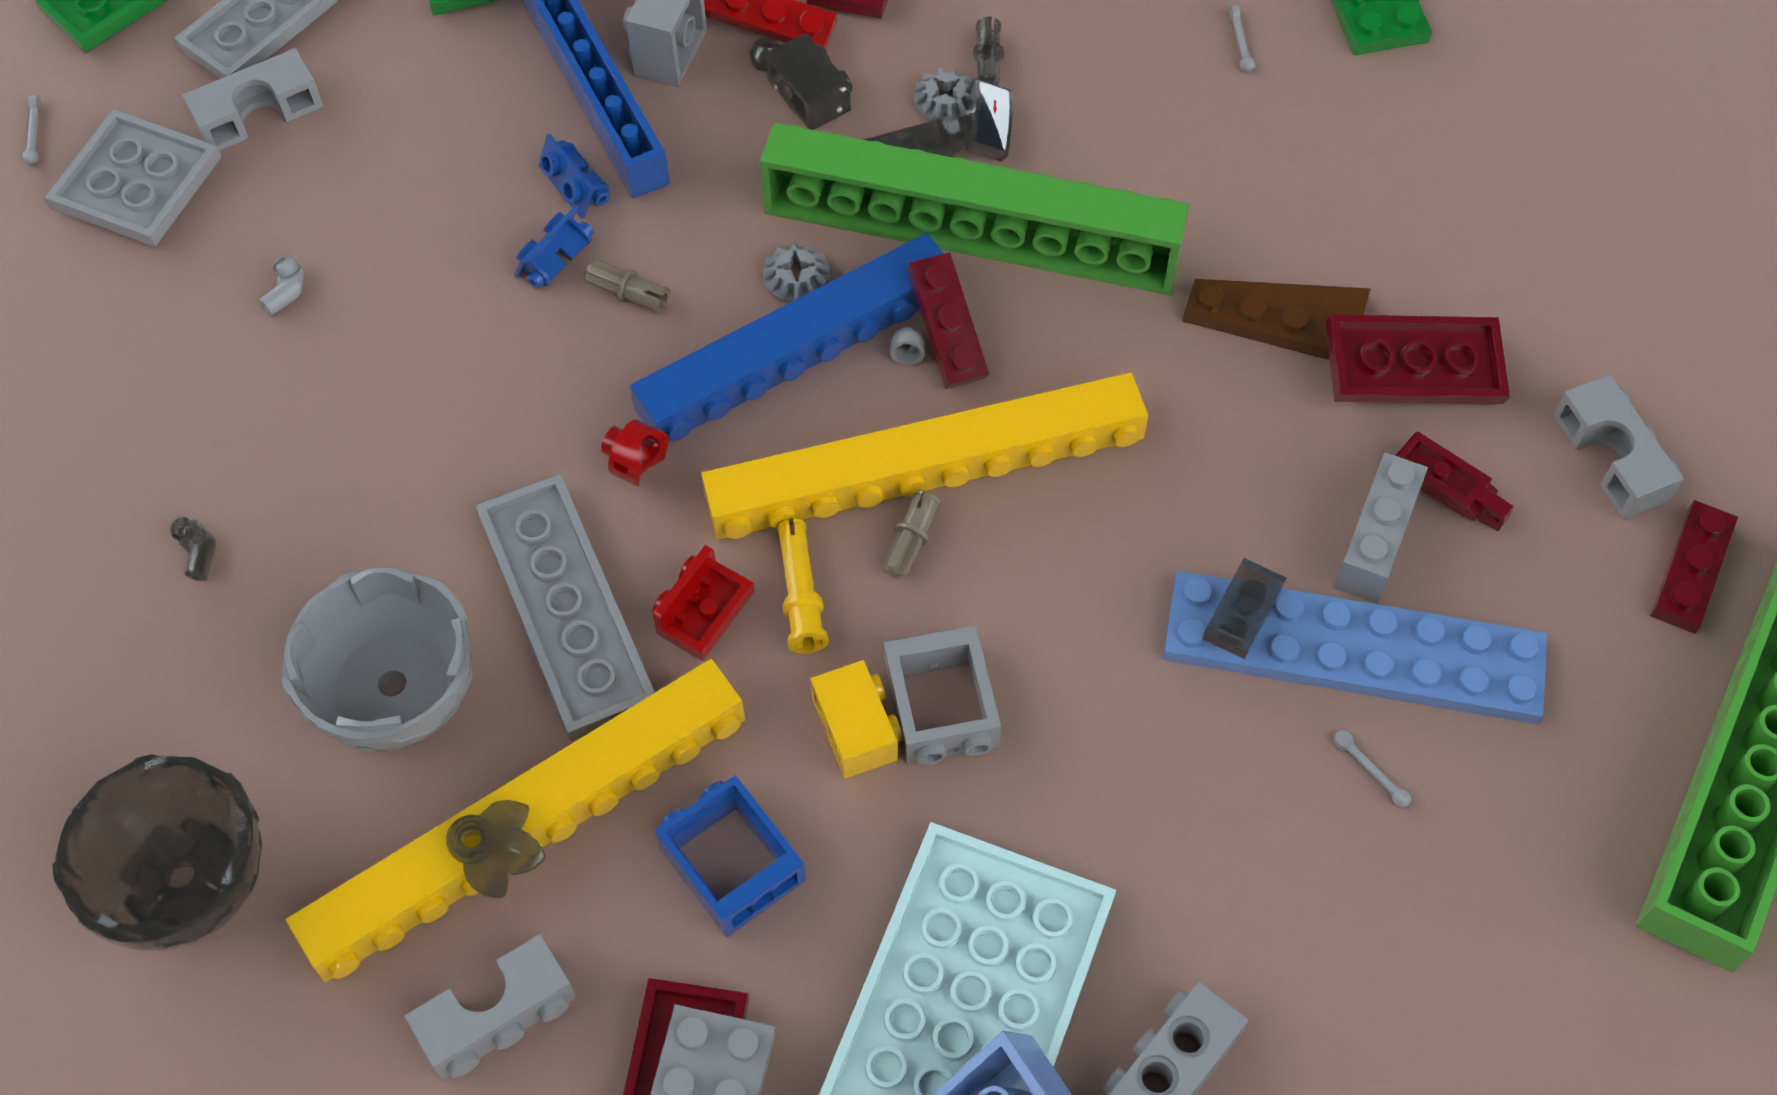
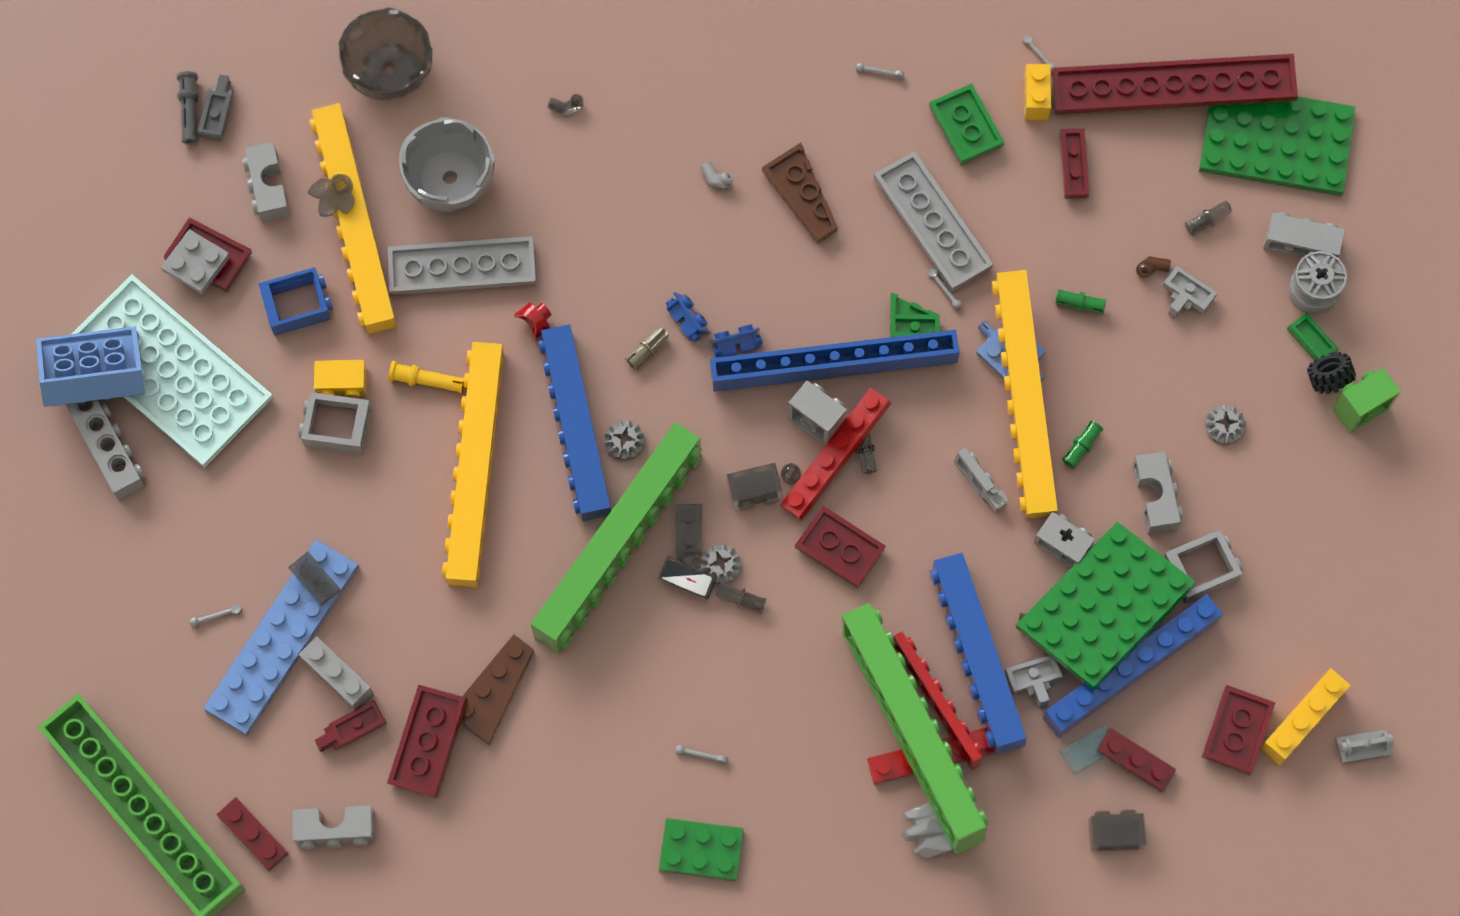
camera: 110 degrees right, 10 degrees up
(133, 177) = (820, 115): light grey plate -> none
(272, 175) = (797, 185): none -> reddish brown wing
(276, 83) = (850, 165): light grey arch -> none
(700, 604) = (432, 327): red bracket -> none
(911, 534) = (433, 441): dark tan axle -> none
(914, 348) = (550, 479): light grey hinge -> none
(947, 320) = (551, 500): dark red plate -> none

